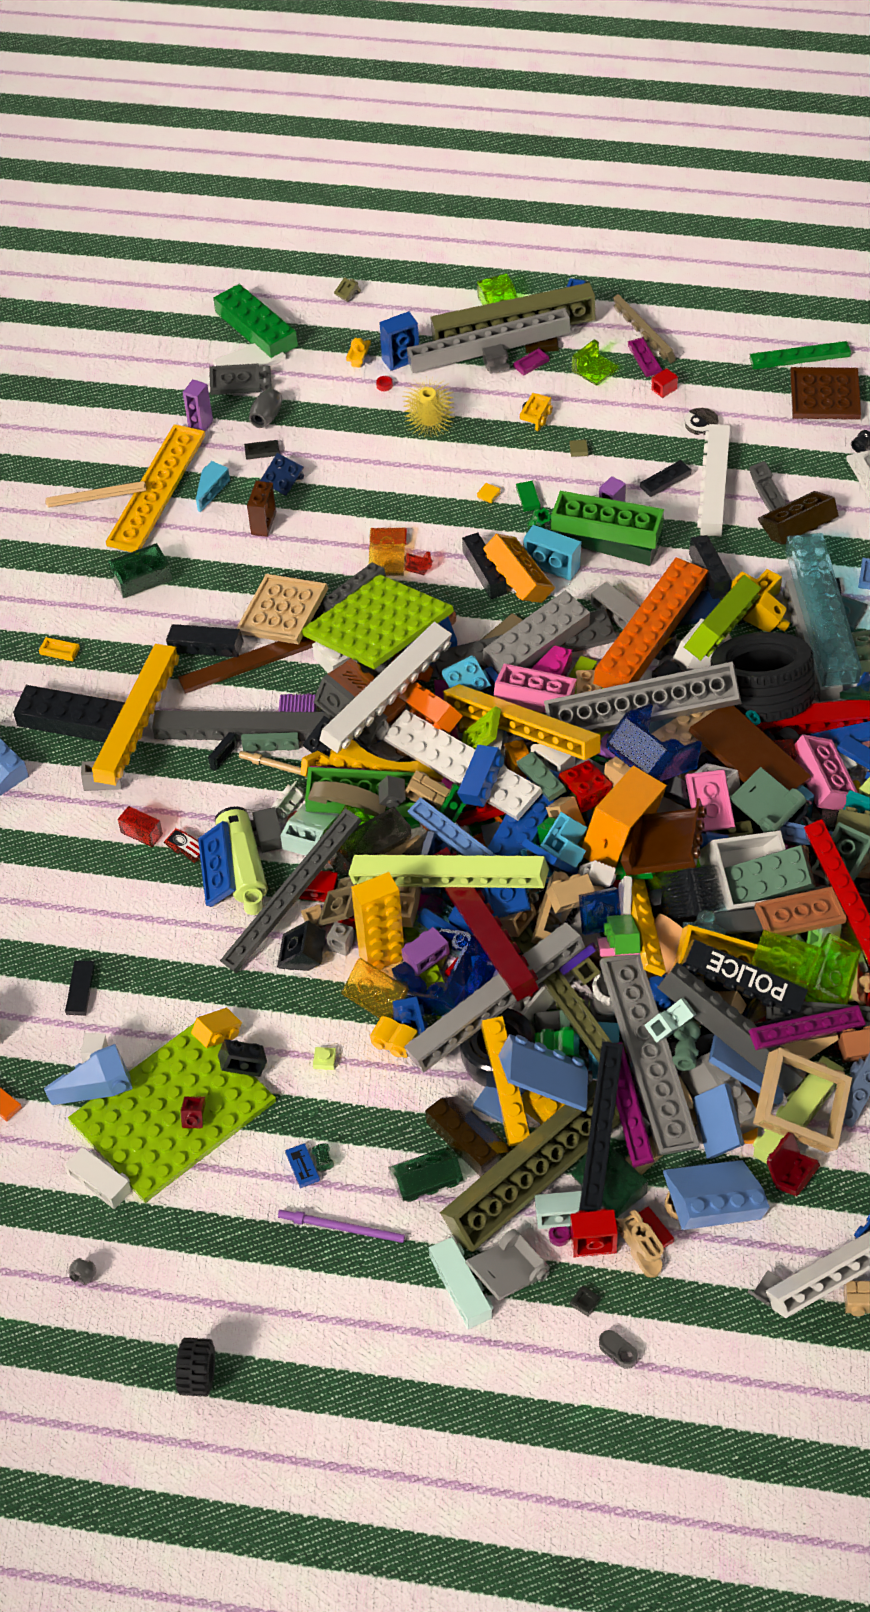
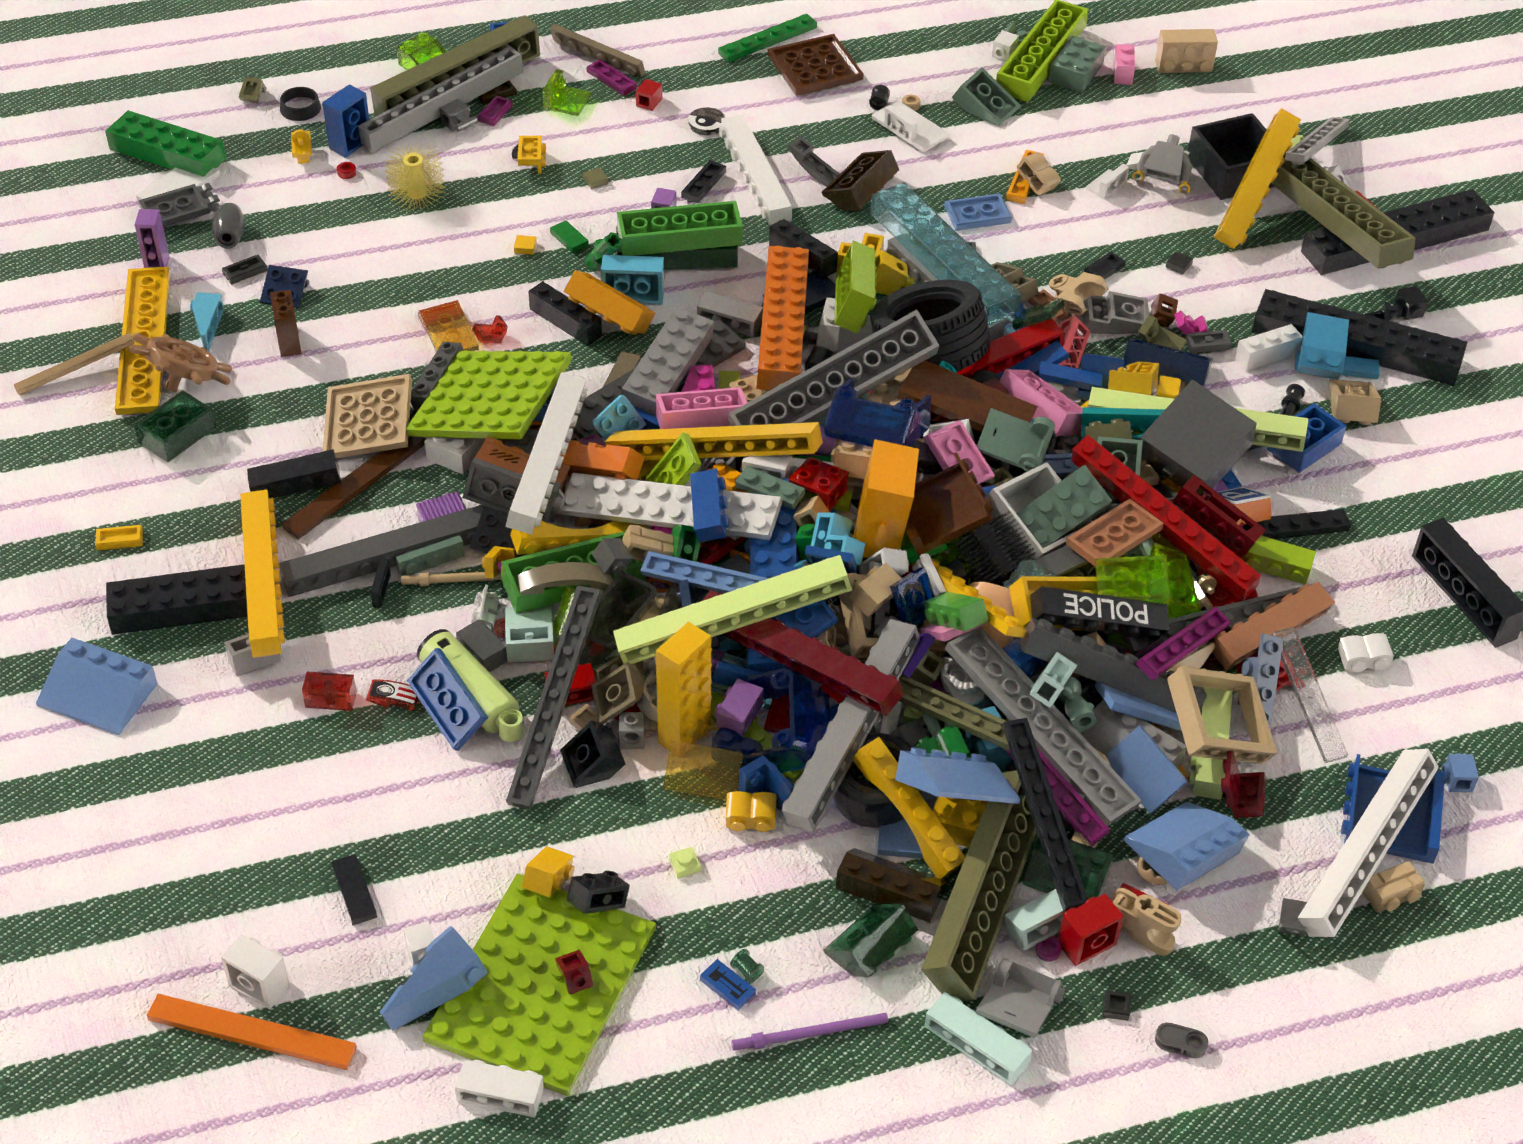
camera: 30 degrees left, 5 degrees down
(167, 516) = (180, 360): none -> medium nougat piece
(374, 321) = (299, 114): none -> black tyre

